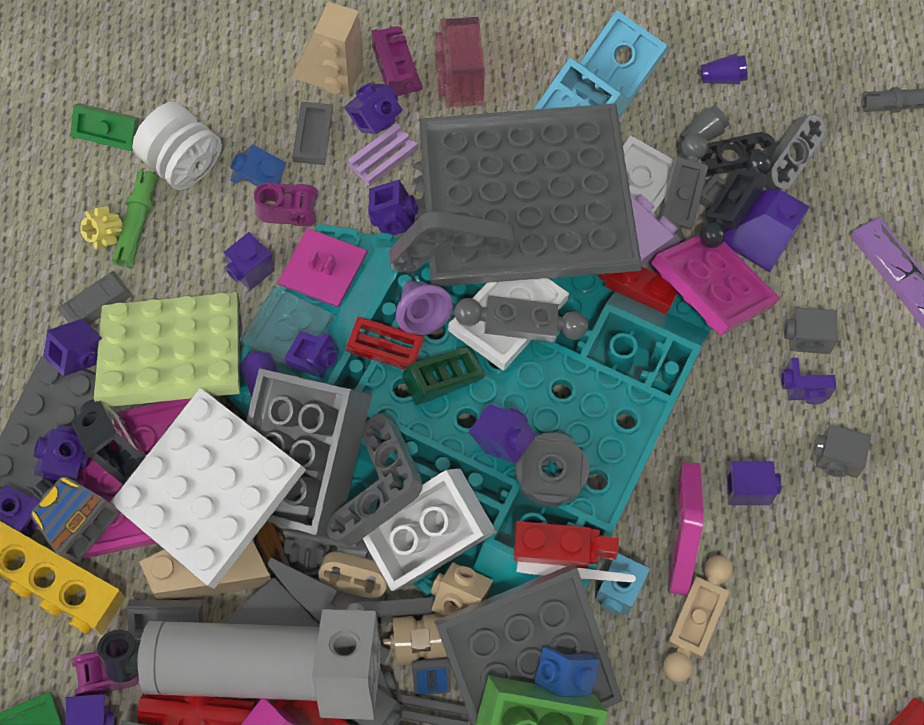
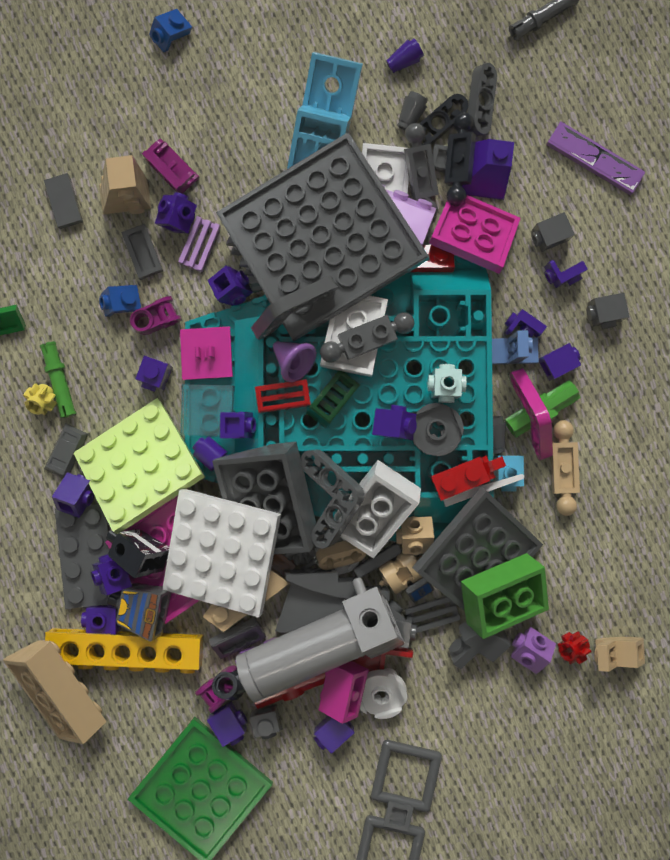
camera: 25 degrees left, 20 degrees up
(176, 145) = (56, 314): white wheel -> none
(256, 44) = (63, 201): none -> dark grey tile
(460, 62) = (218, 147): clear pink brick -> none
(566, 674) = (508, 555): blue bracket -> none
(591, 419) = (437, 386): none -> light aqua brick
(630, 529) = (499, 433): none -> dark grey cone
(702, 442) = (515, 349): none -> medium blue bracket
(717, 529) = (554, 401): none -> bright green piece
(732, 418) = (526, 322): none -> dark purple bracket

